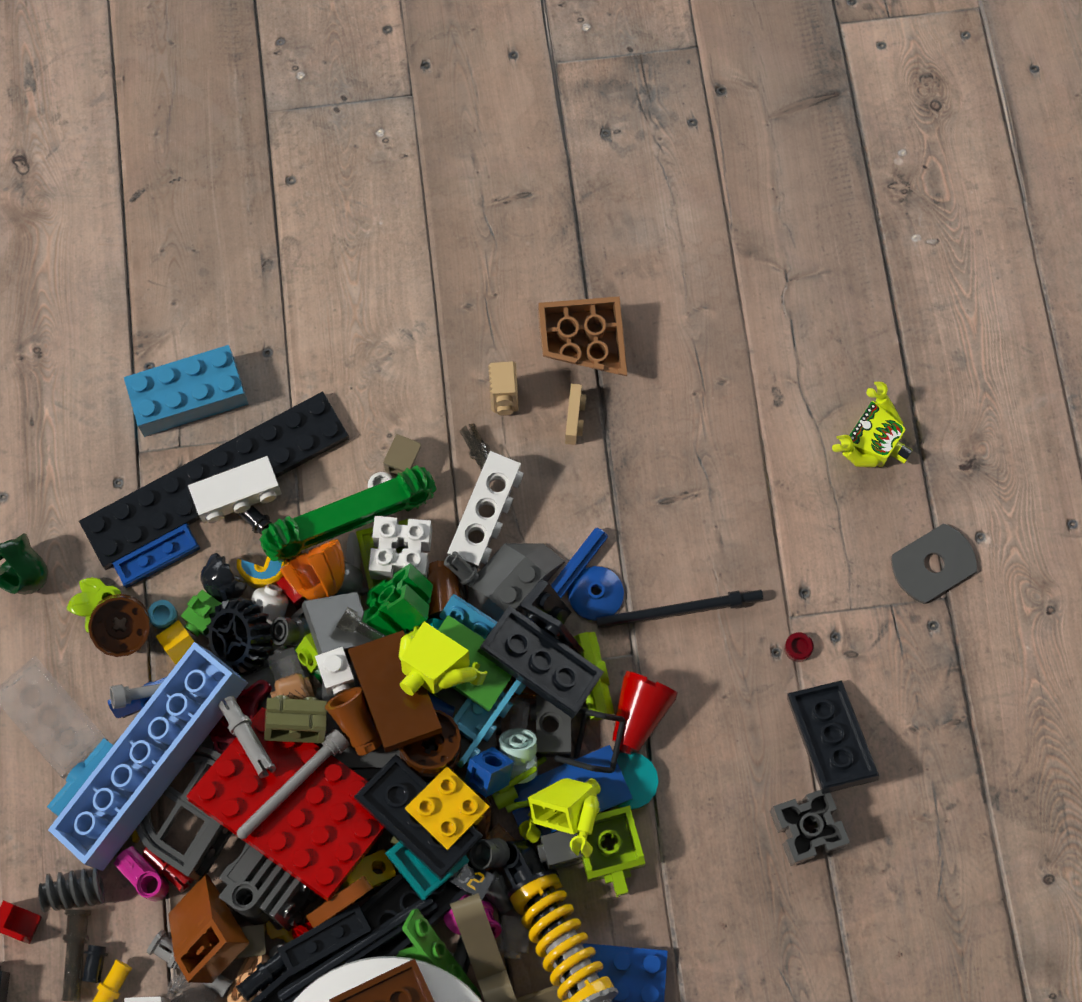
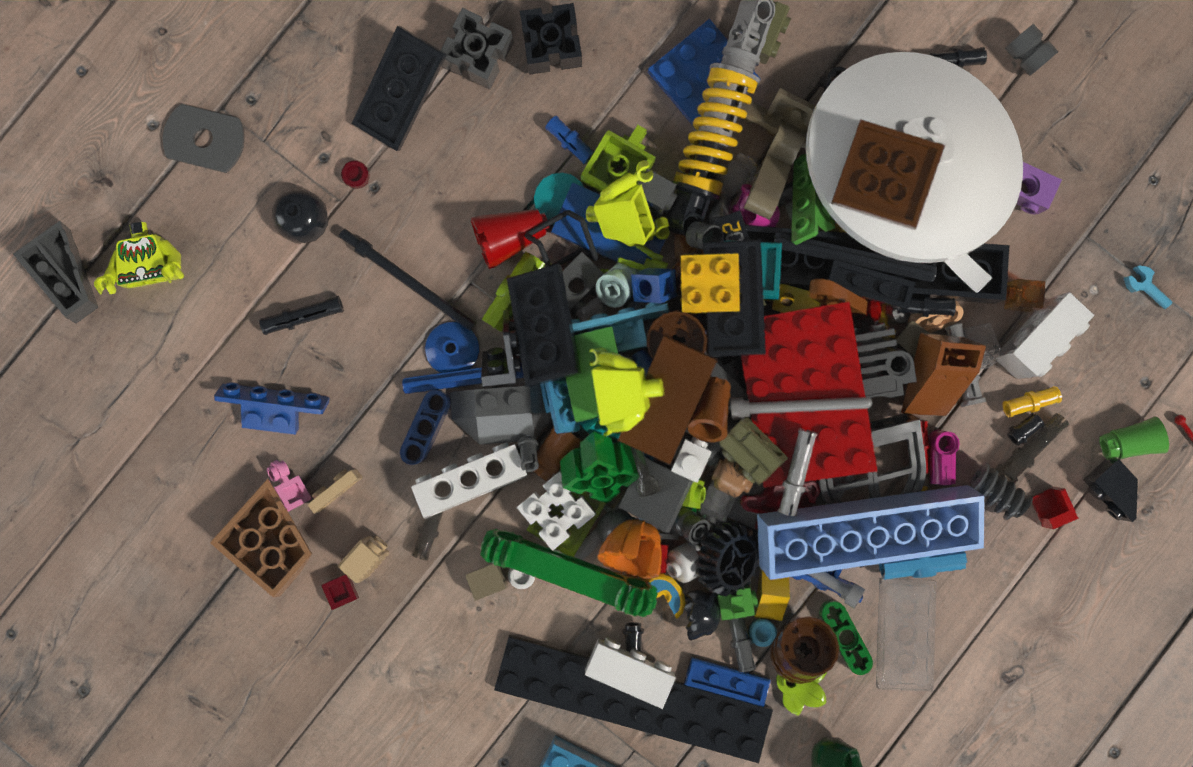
camera: 140 degrees left, 15 degrees up
(77, 657) = (862, 651): none -> green beam
(170, 590) = (741, 644): none -> dark grey pin
(499, 351) = (340, 591): none -> dark red plate
(553, 505) = (414, 435): none -> dark blue beam
(603, 384) = (292, 491): none -> bright pink plate
(669, 833) = (569, 139): none -> blue pin
(679, 426) = (271, 408): none -> blue bracket
(731, 499) = (291, 318): none -> black pin
(781, 891) = (560, 25): none -> black brick
(804, 576) = (300, 216): none -> black cylinder
(921, 371) = (59, 271): none -> dark grey wedge

